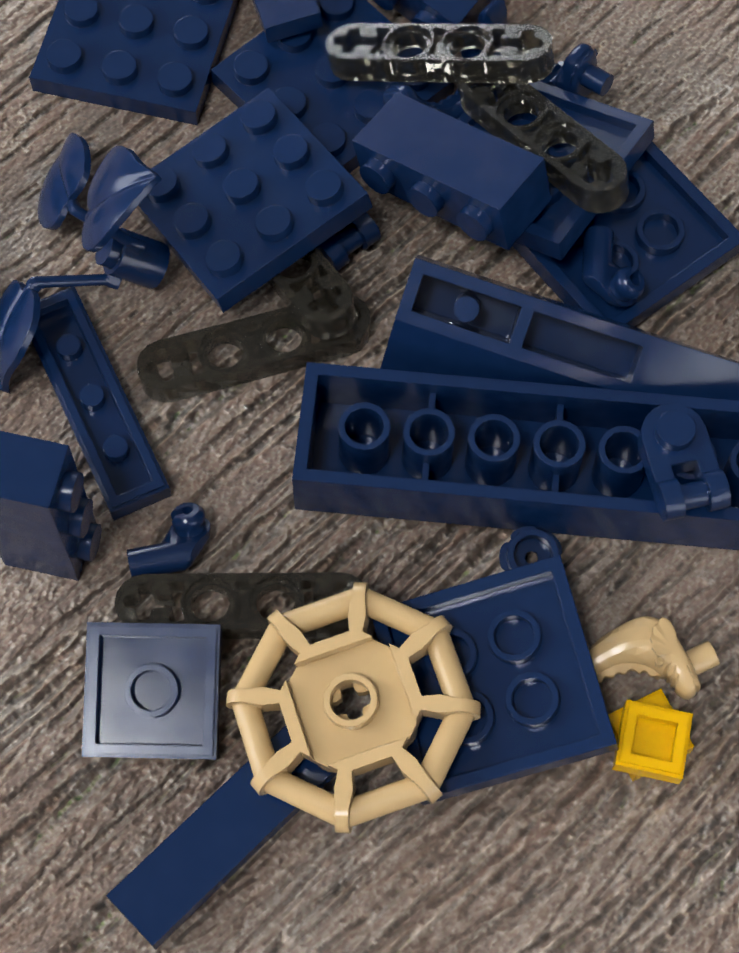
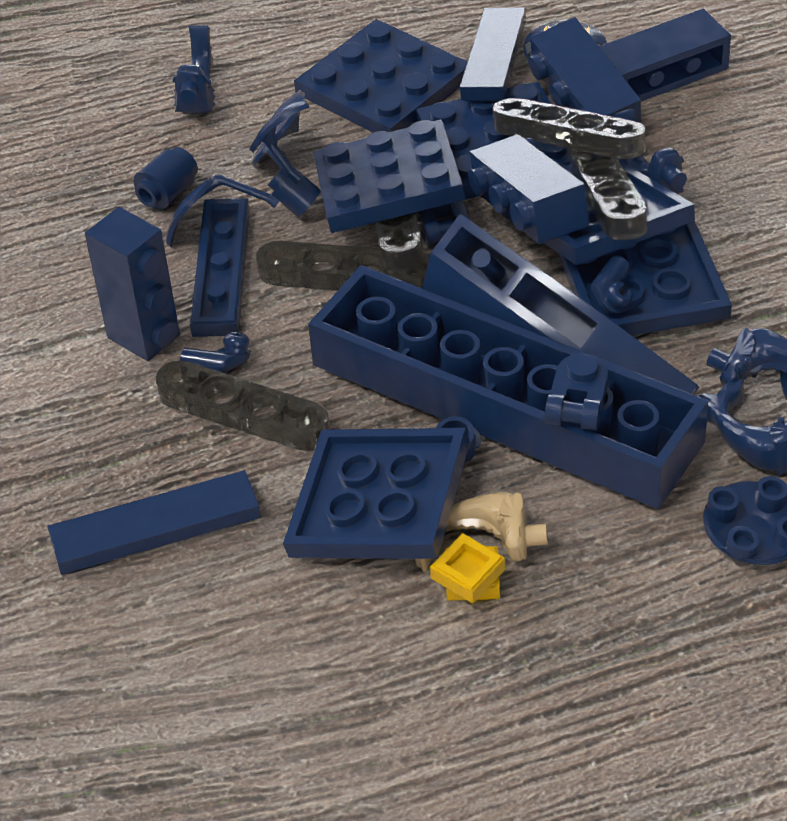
camera: 30 degrees right, 20 degrees down
(152, 690) = (150, 427): tile -> none
(362, 743) = (279, 435): tan plate -> none

